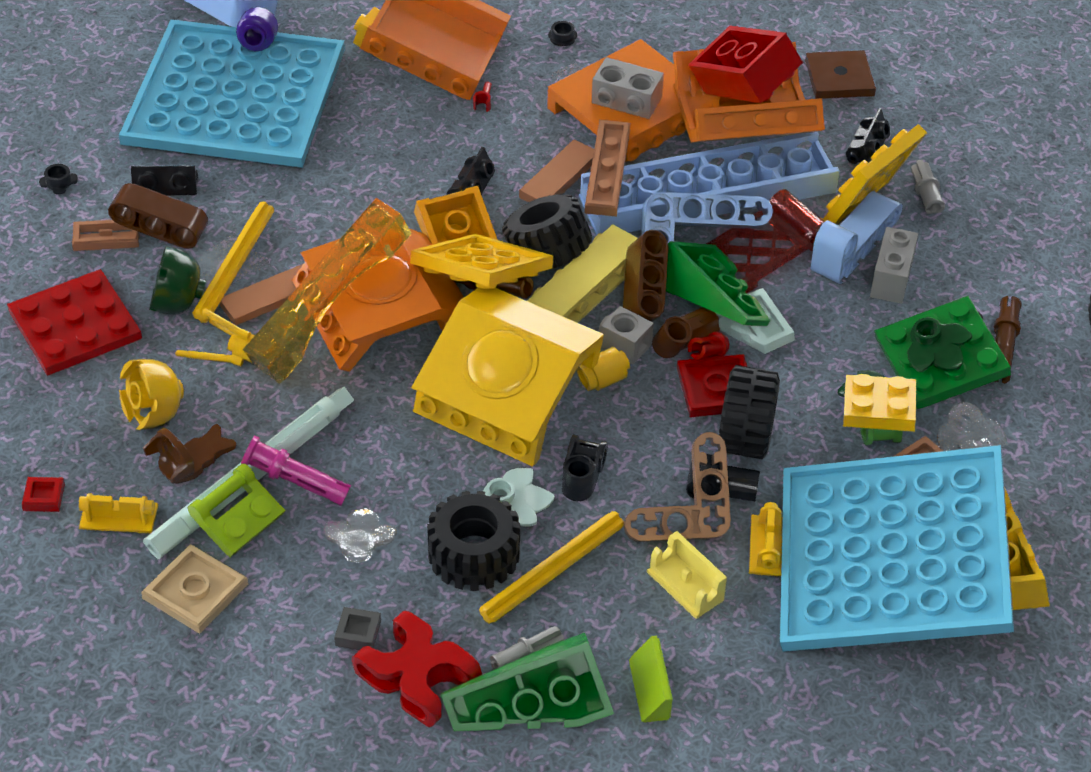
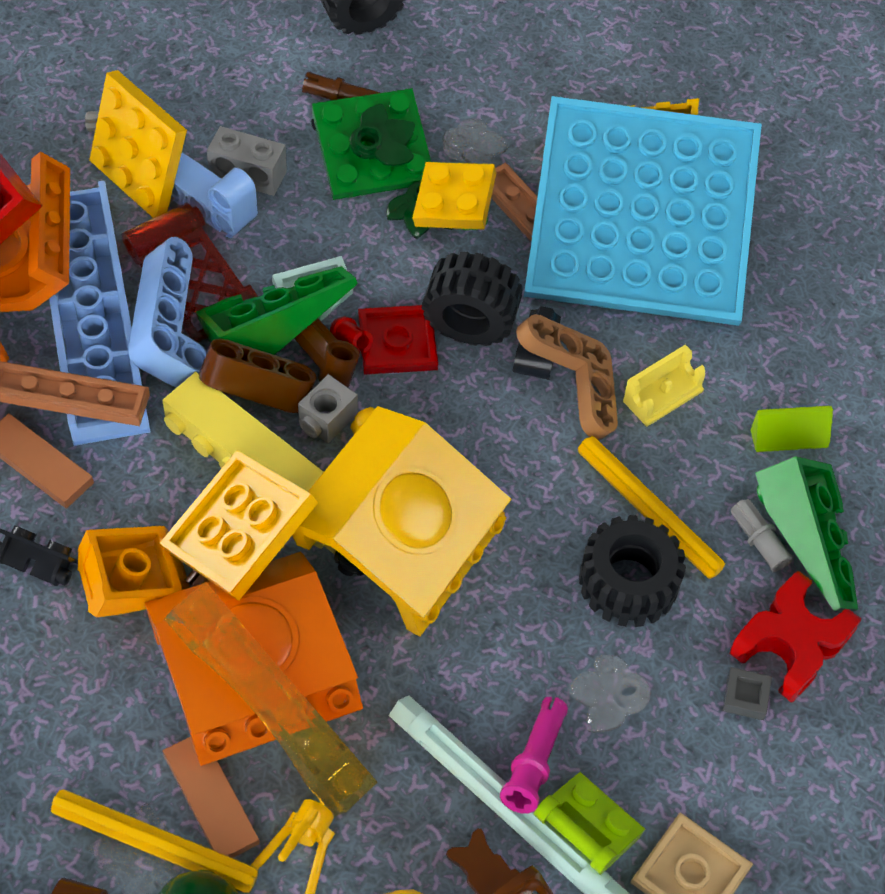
camera: 90 degrees left, 10 degrees up
(521, 494) = (554, 529): light aqua plate -> none
(550, 226) = (145, 452): black tyre -> none
(582, 467) = (516, 463): black piece -> none
(766, 541) = (603, 317): yellow hinge -> none
(868, 138) = (25, 147): black hinge -> none

